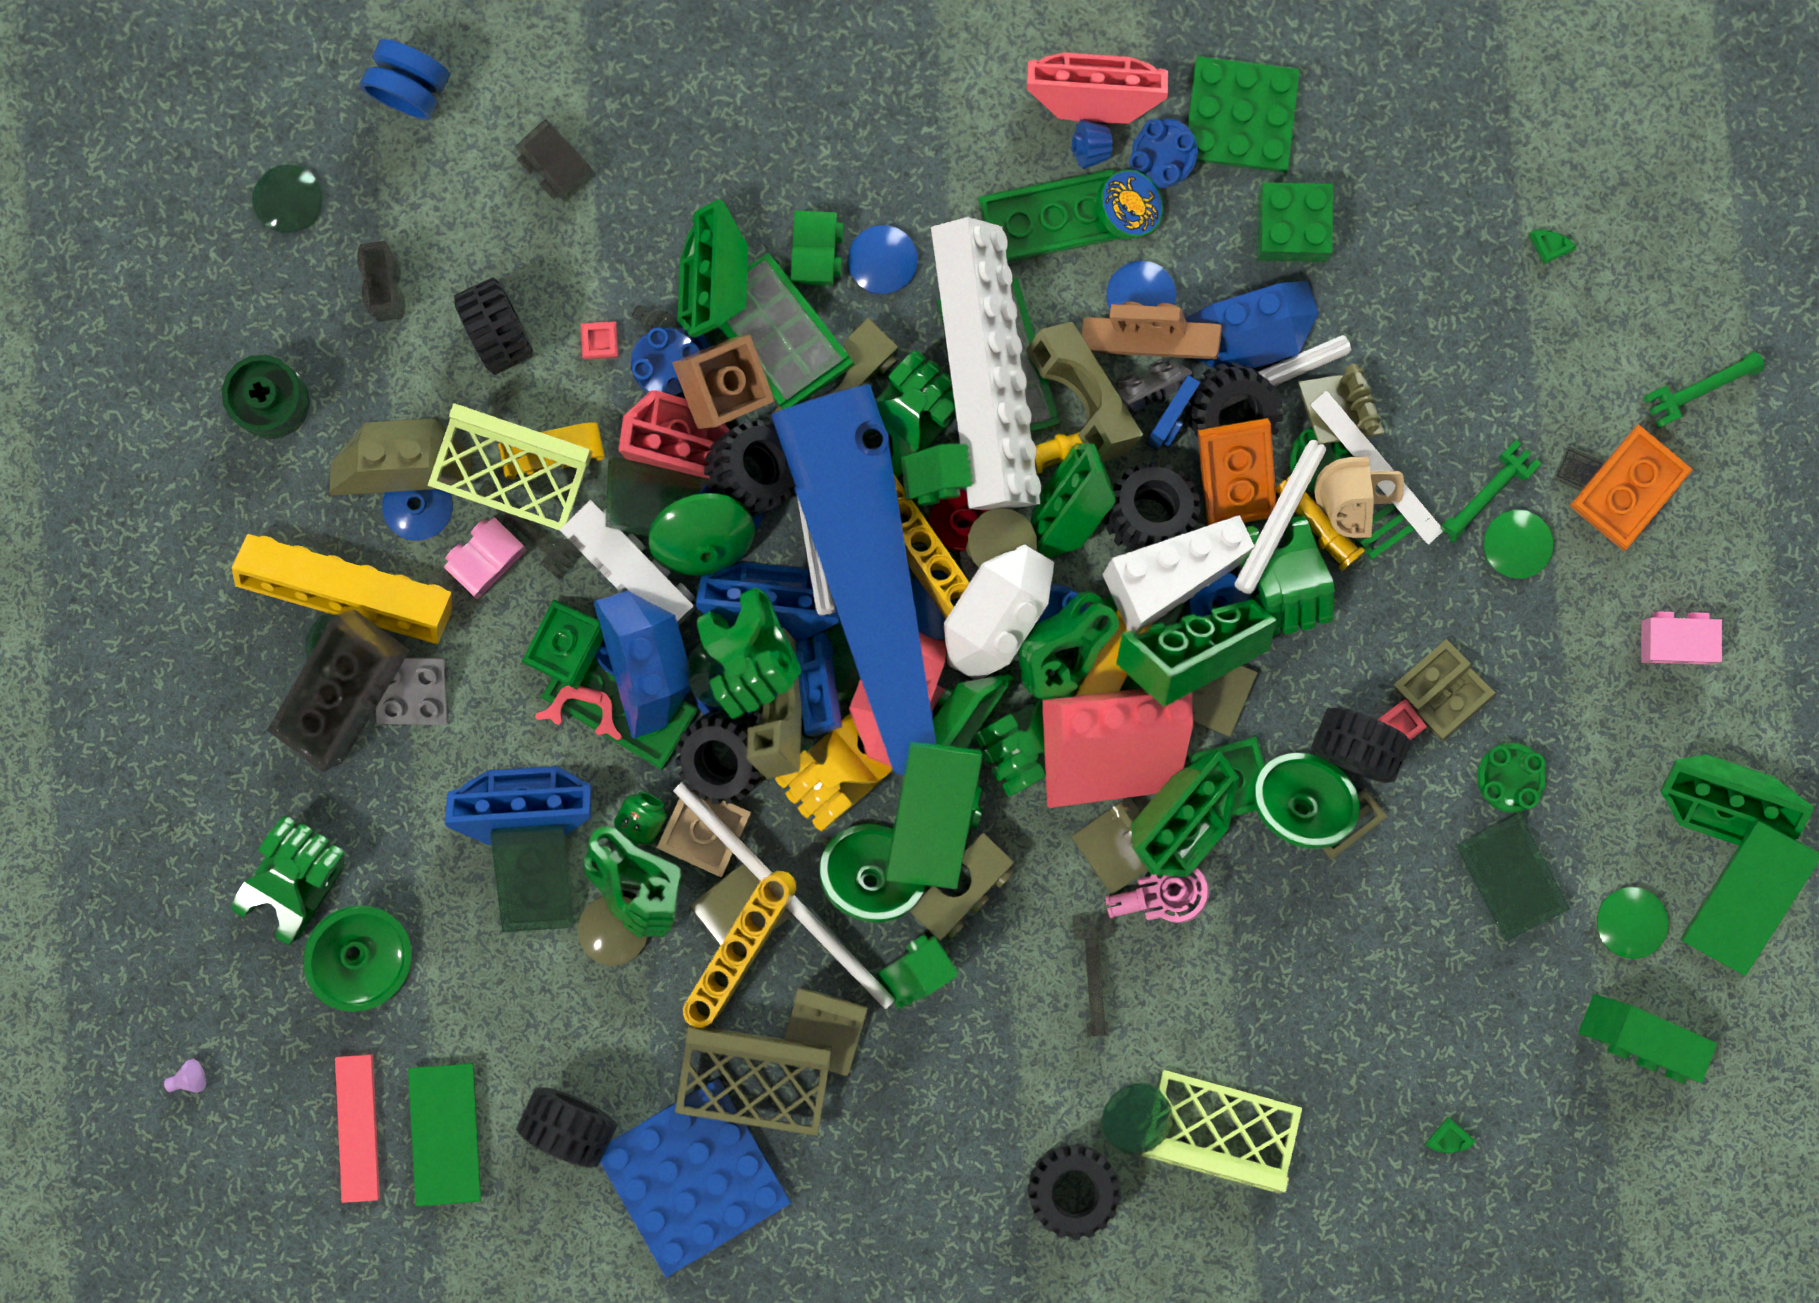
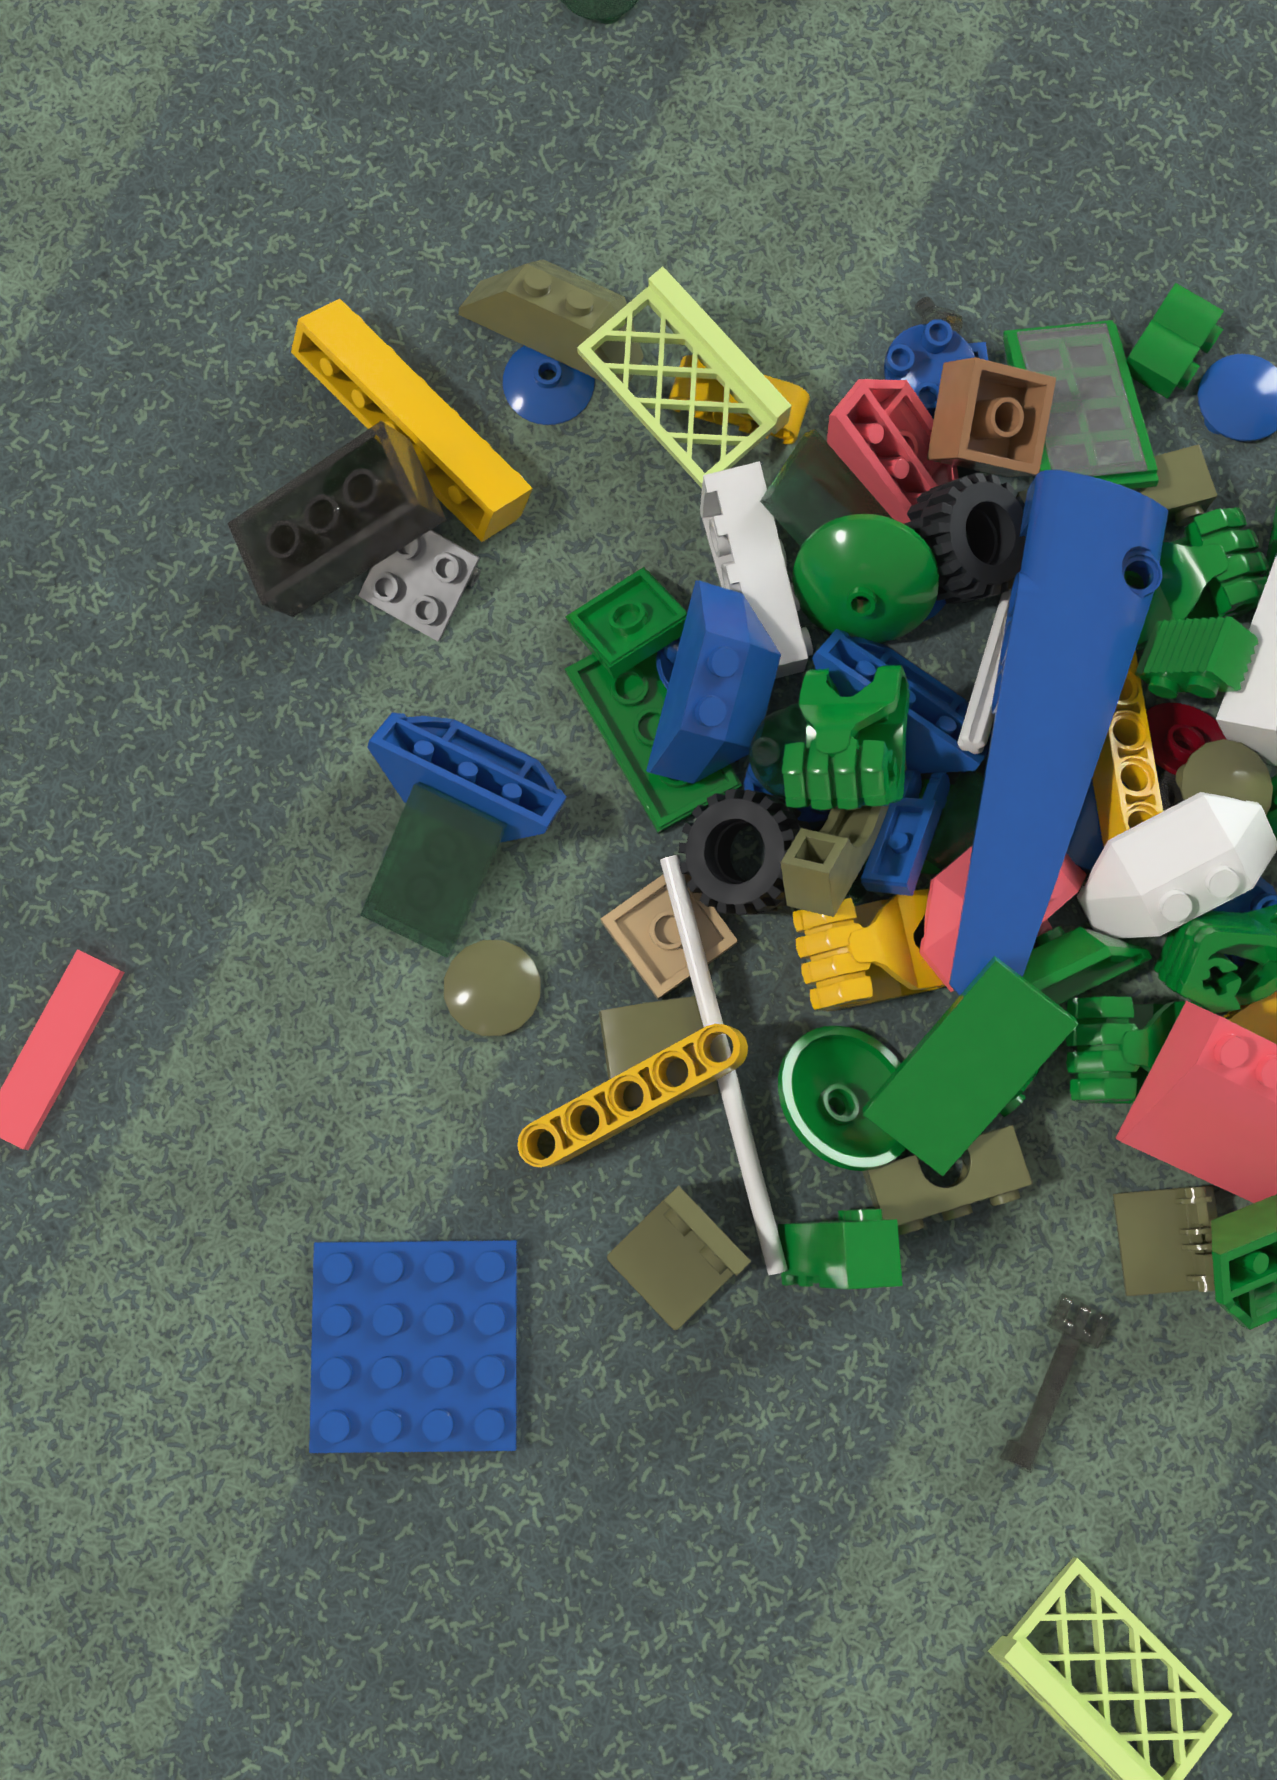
camera: 30 degrees right, 5 degrees down
(285, 394) = (450, 165): dark green wheel -> none
(291, 877) = (156, 713): green piece -> none
(368, 976) = (162, 876): green dish -> none
(380, 287) = (653, 111): clear smoke brick -> none
(444, 1134) = (148, 1117): green piece -> none
(484, 556) = (592, 475): bright pink brick -> none
(493, 326) = (756, 218): black tyre -> none
(553, 551) = (674, 515): clear smoke hinge -> none
(554, 161) = (923, 92): clear smoke brick -> none
(566, 1127) = (296, 1193): black tyre -> none
(588, 695) = (620, 693): coral helmet -> none
(599, 340) = (862, 312): coral tile -> none
(640, 818) = (600, 873): green head -> none
(658, 880) = (582, 953): green piece -> none
(712, 271) = (1044, 293): green wedge -> none
(757, 1048) = (589, 1235): olive fence -> none
(1084, 1221) = (915, 1683): black tyre -> none
(1137, 1118) = (1015, 1604): clear green tile -> none
(1163, 895) = (1186, 1331): bright pink pin -> none

